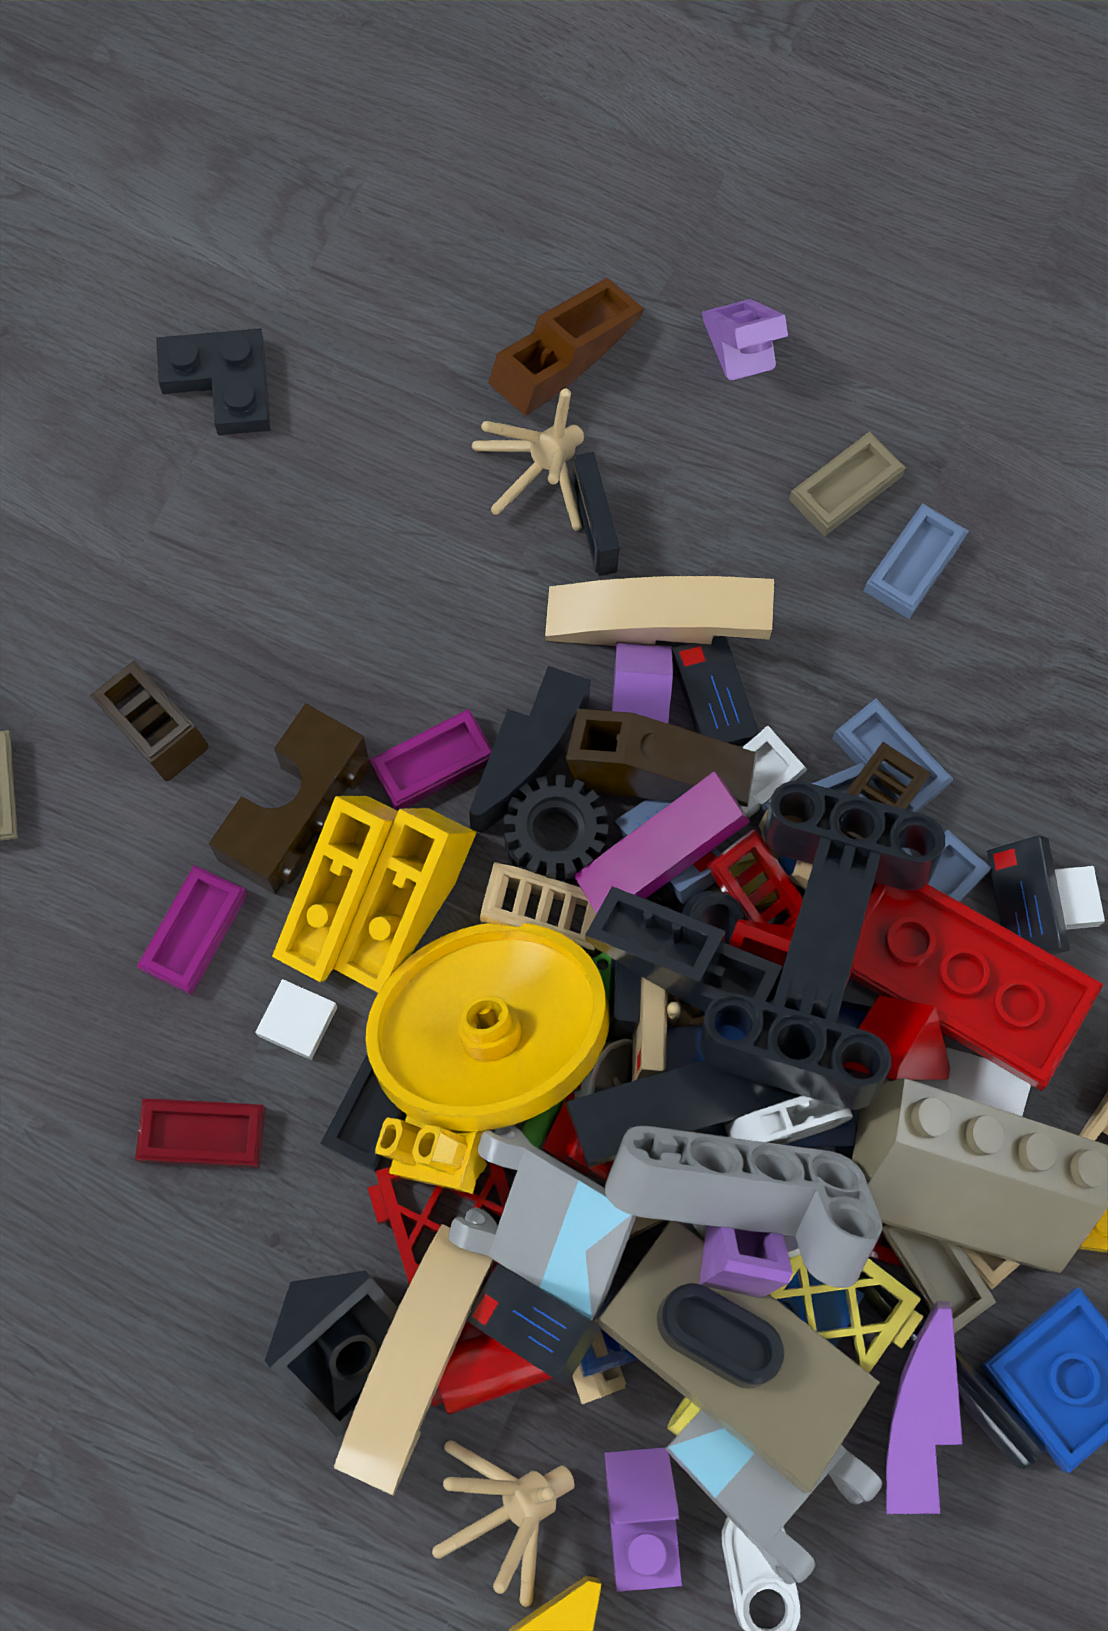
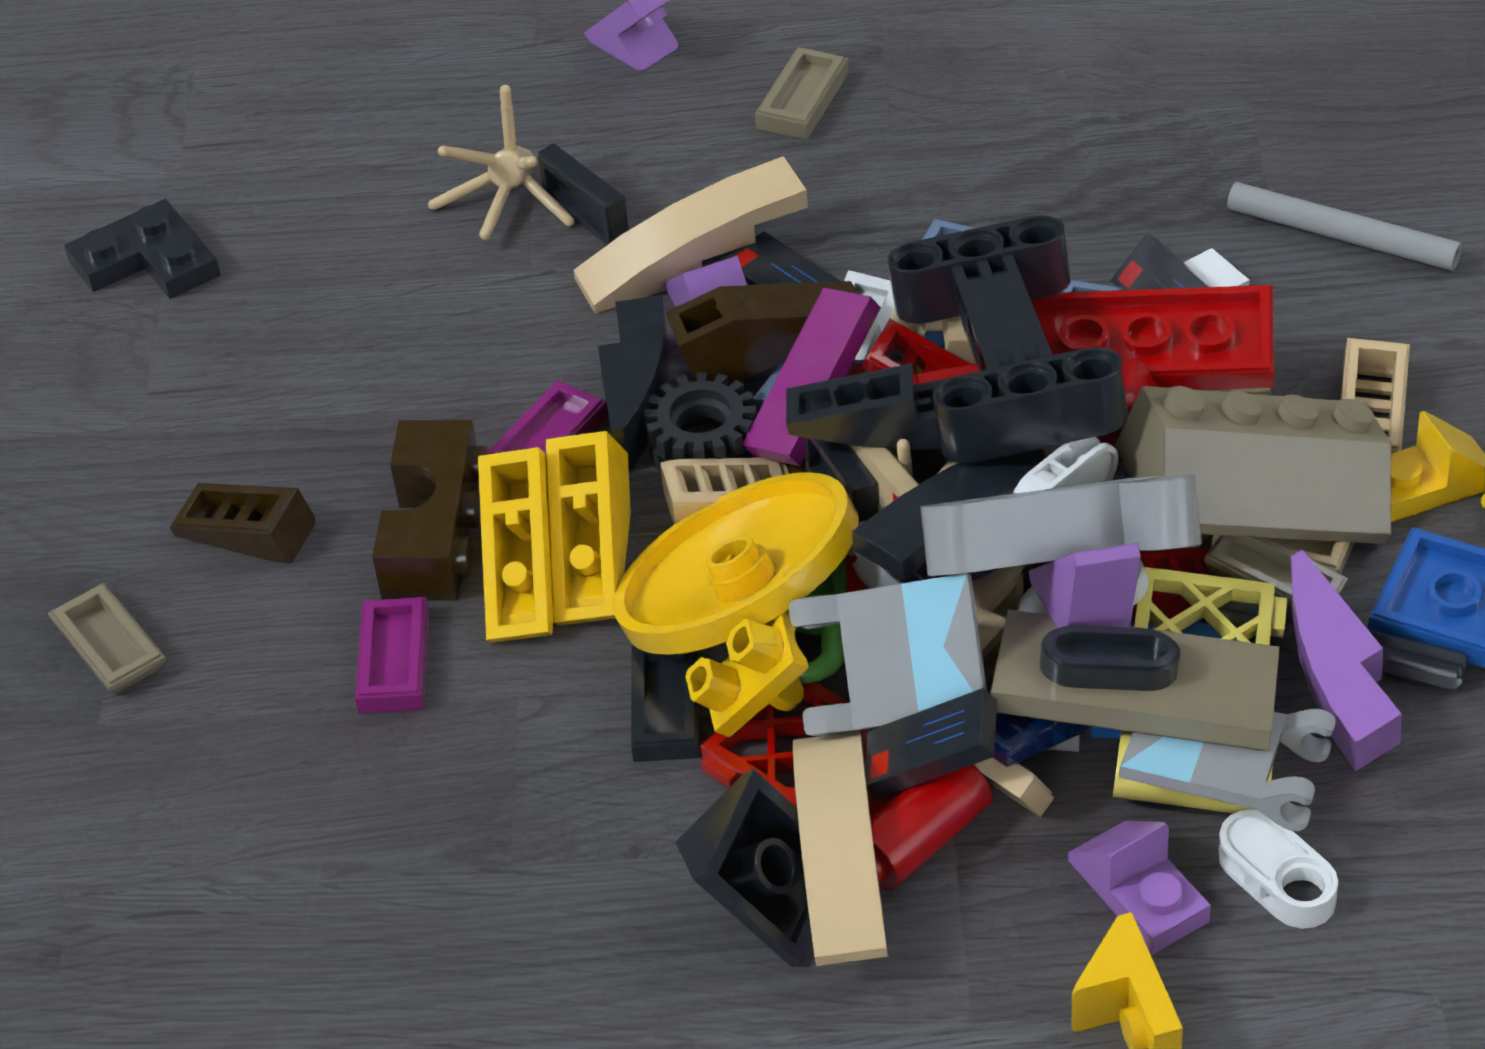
camera: 20 degrees left, 25 degrees down
(200, 1133) = (505, 799): dark red tile -> none
(296, 1019) = (543, 673): white tile -> none
(525, 1503) = (1016, 909): tan plant -> none
(563, 345) = (469, 97): reddish brown slope -> none
(915, 561) = (902, 119): sand blue tile -> none

